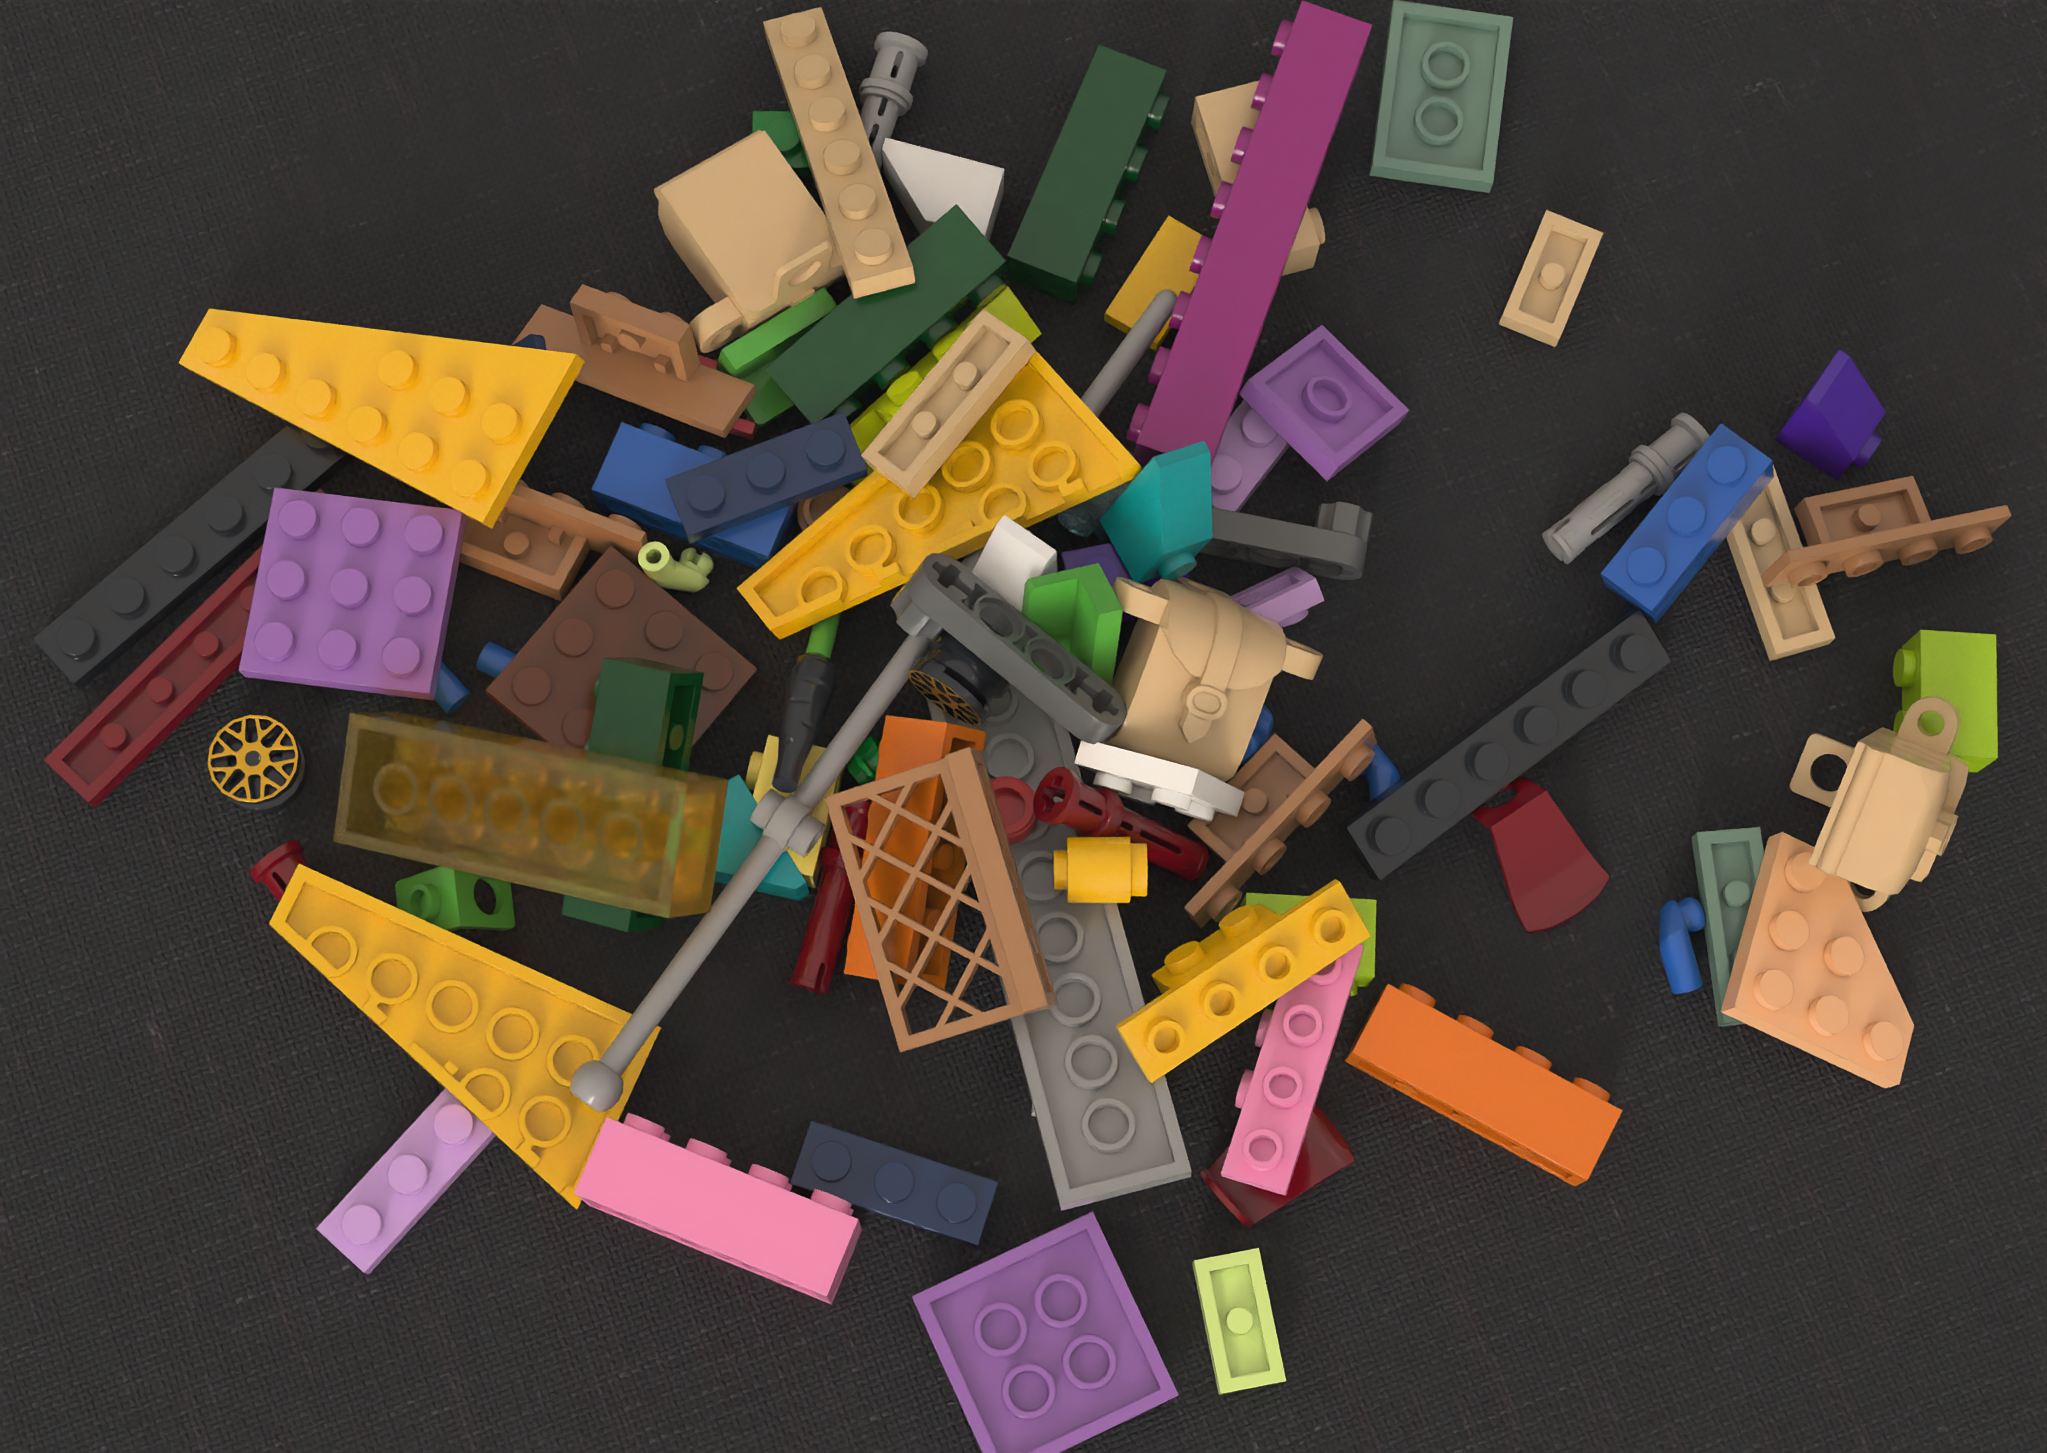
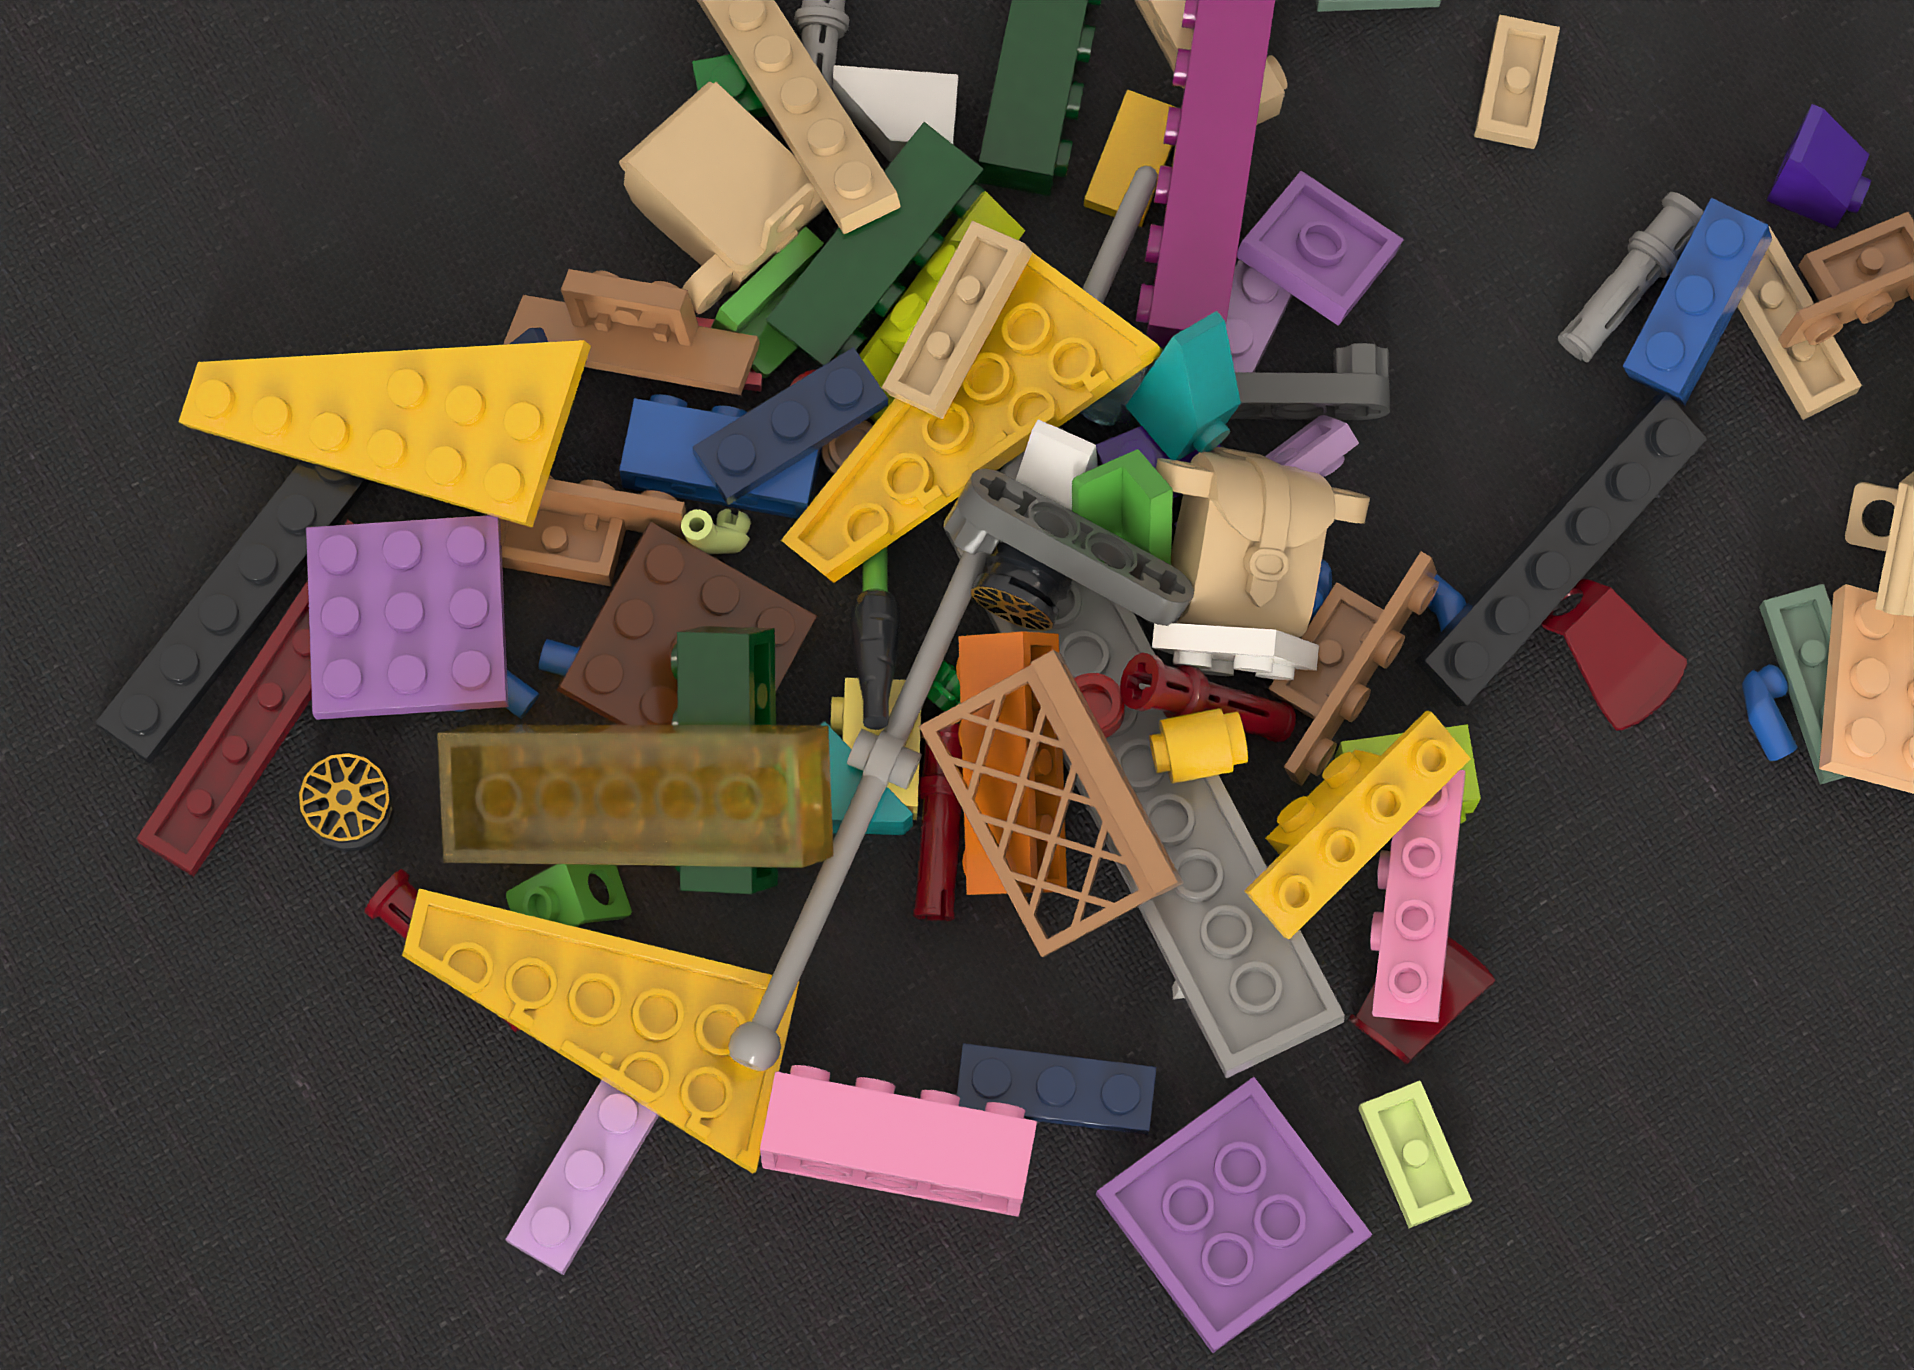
camera: 10 degrees left, 0 degrees up
(1483, 1084) = (1605, 882): orange brick -> none

